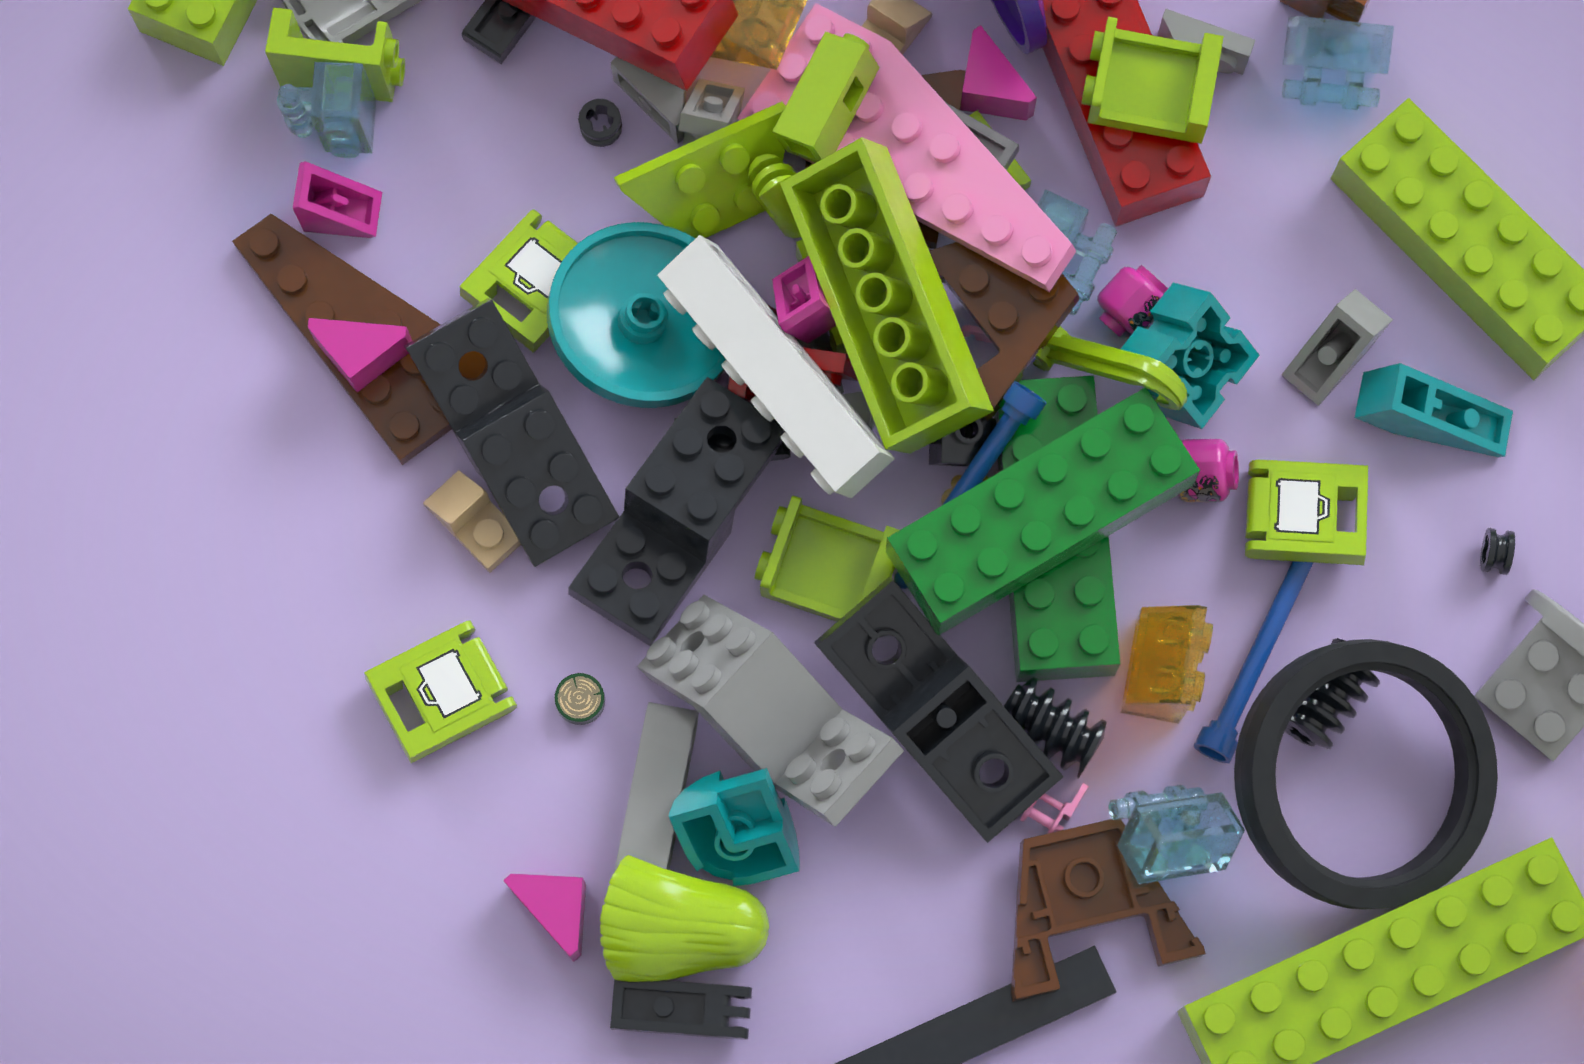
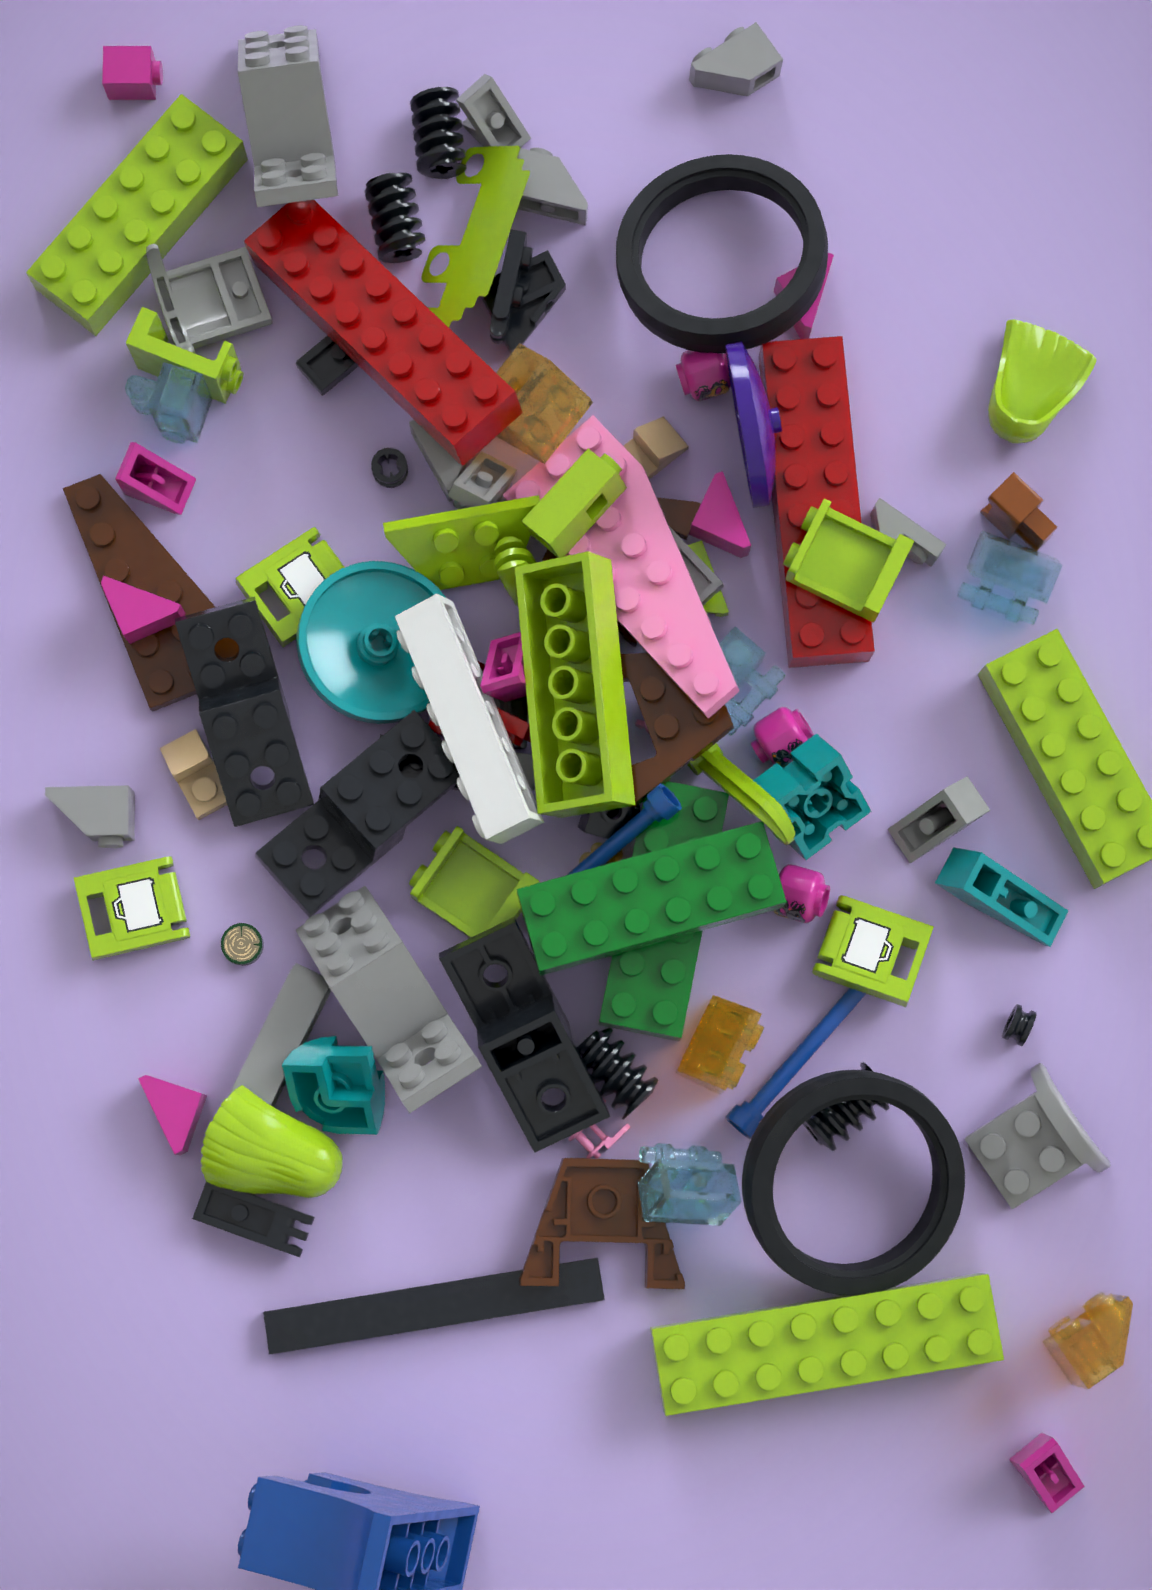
camera: 10 degrees right, 5 degrees up
(370, 590) = (98, 811): none -> light grey slope

